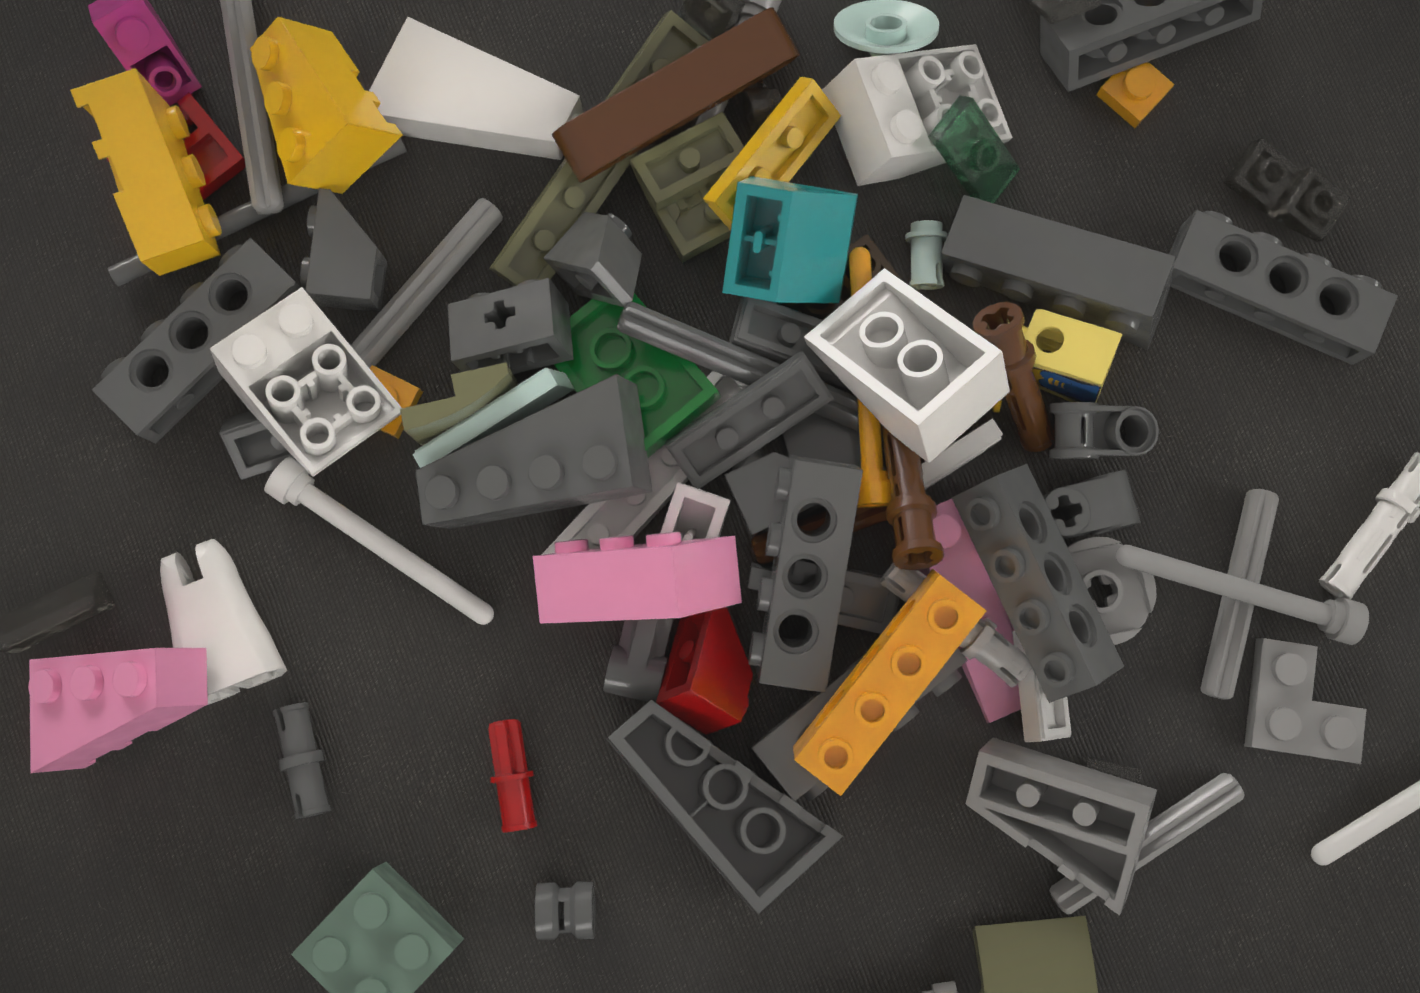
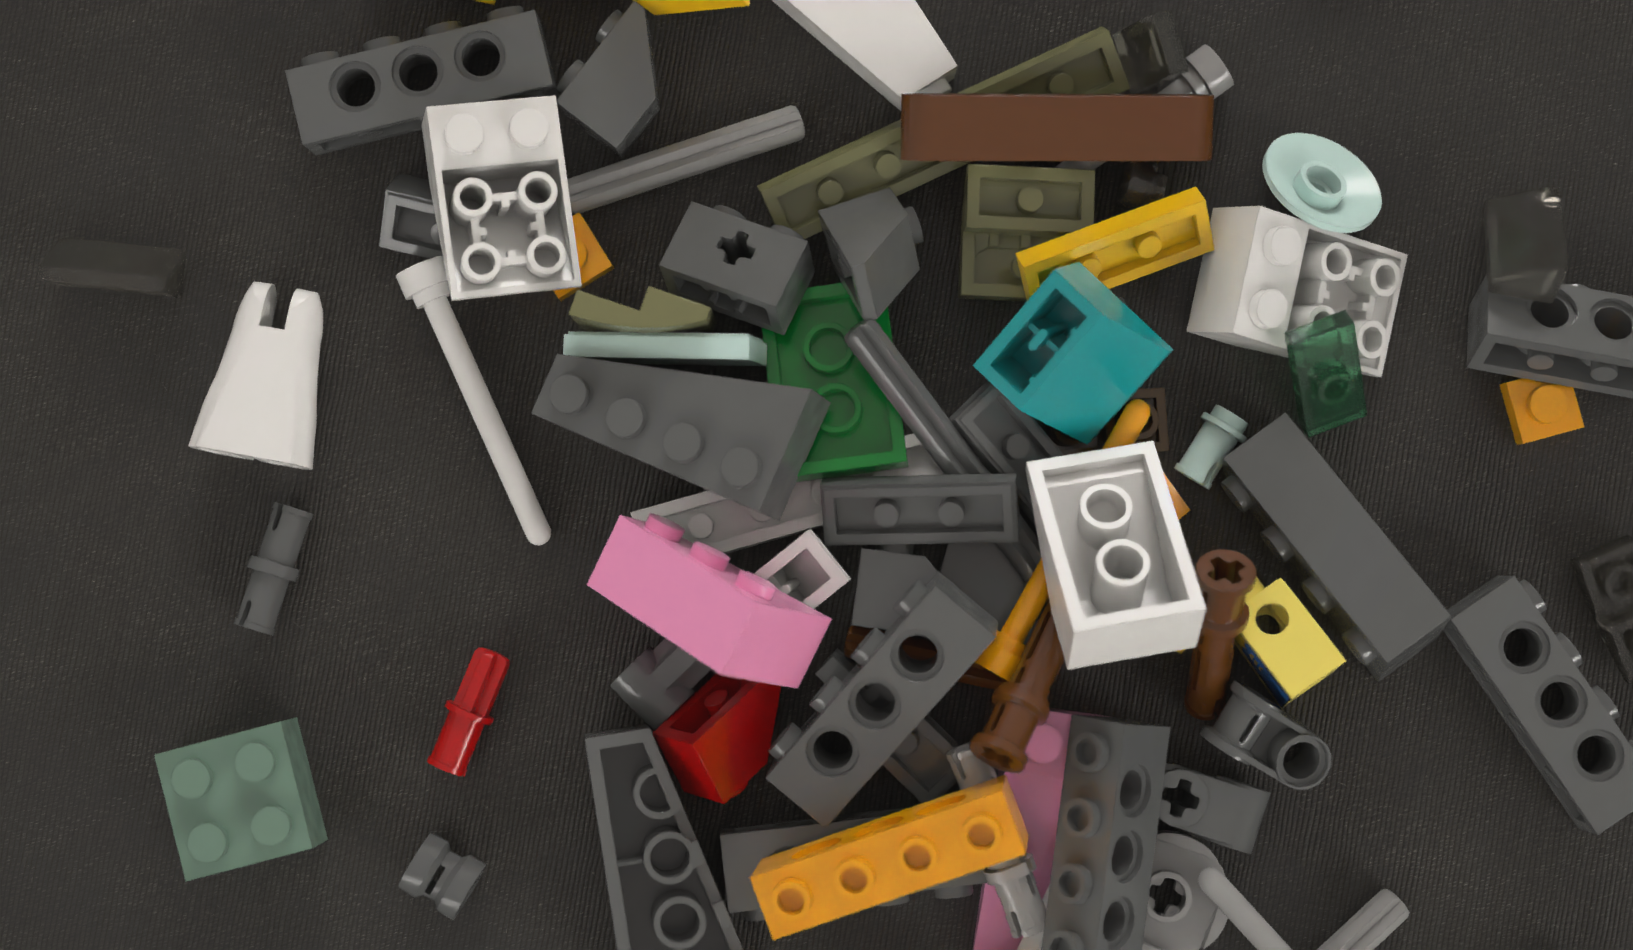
camera: 35 degrees right, 5 degrees up
(108, 699) = (121, 394): bright pink wedge -> none
(961, 452) = (1123, 672): white plate -> none

